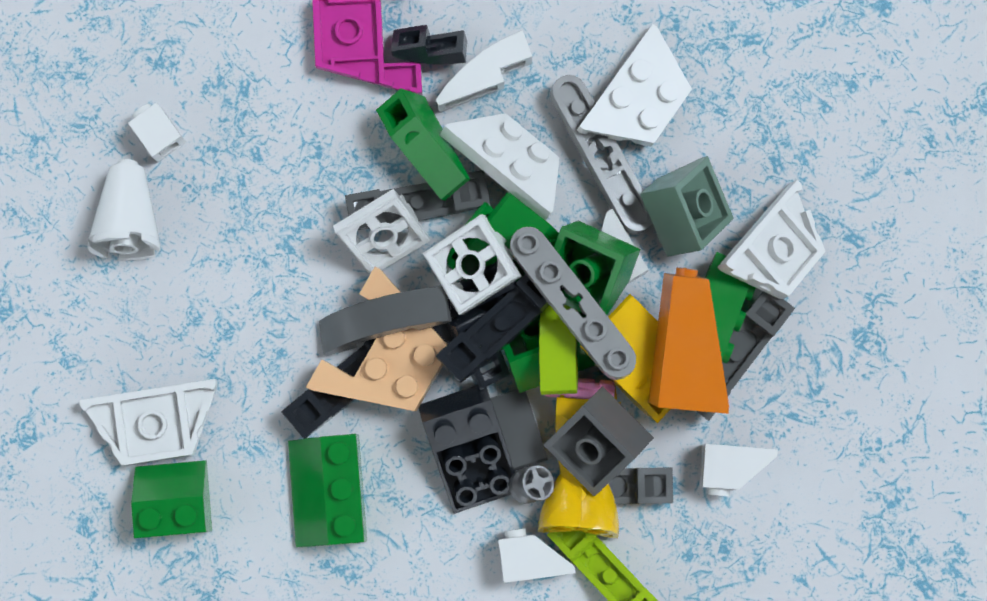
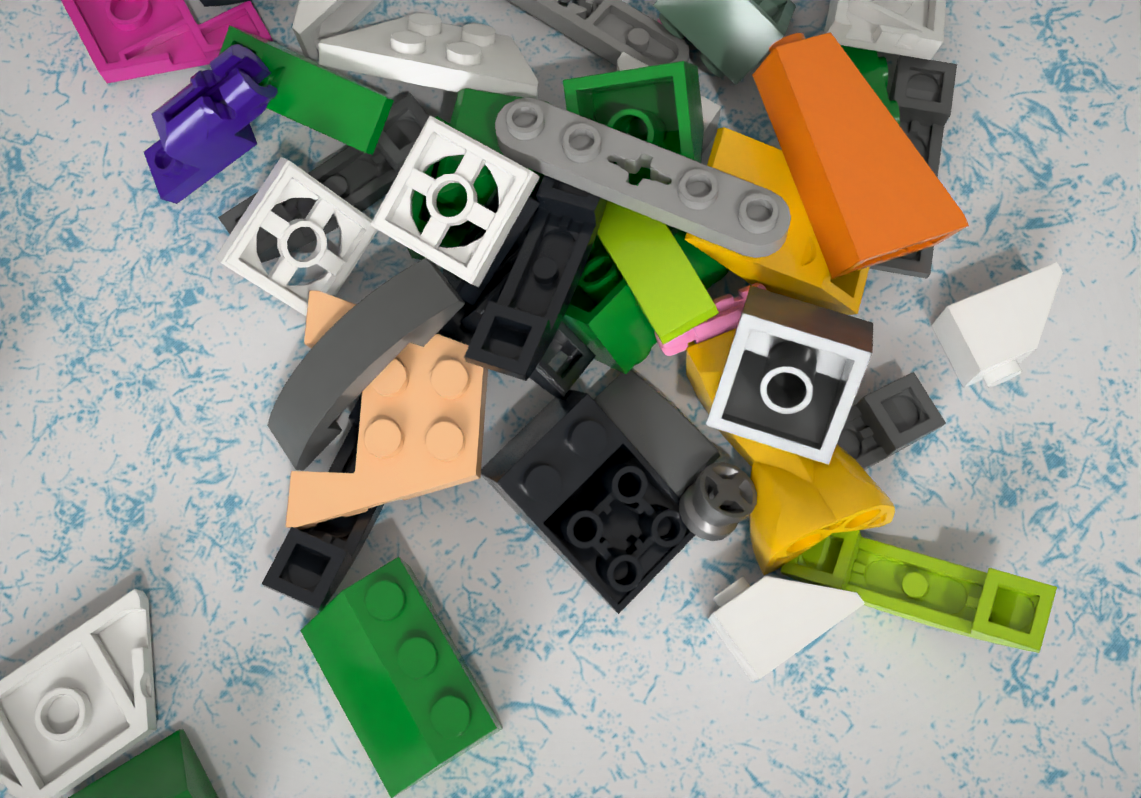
camera: 25 degrees left, 10 degrees down
(362, 140) = (208, 123): none -> dark purple plate

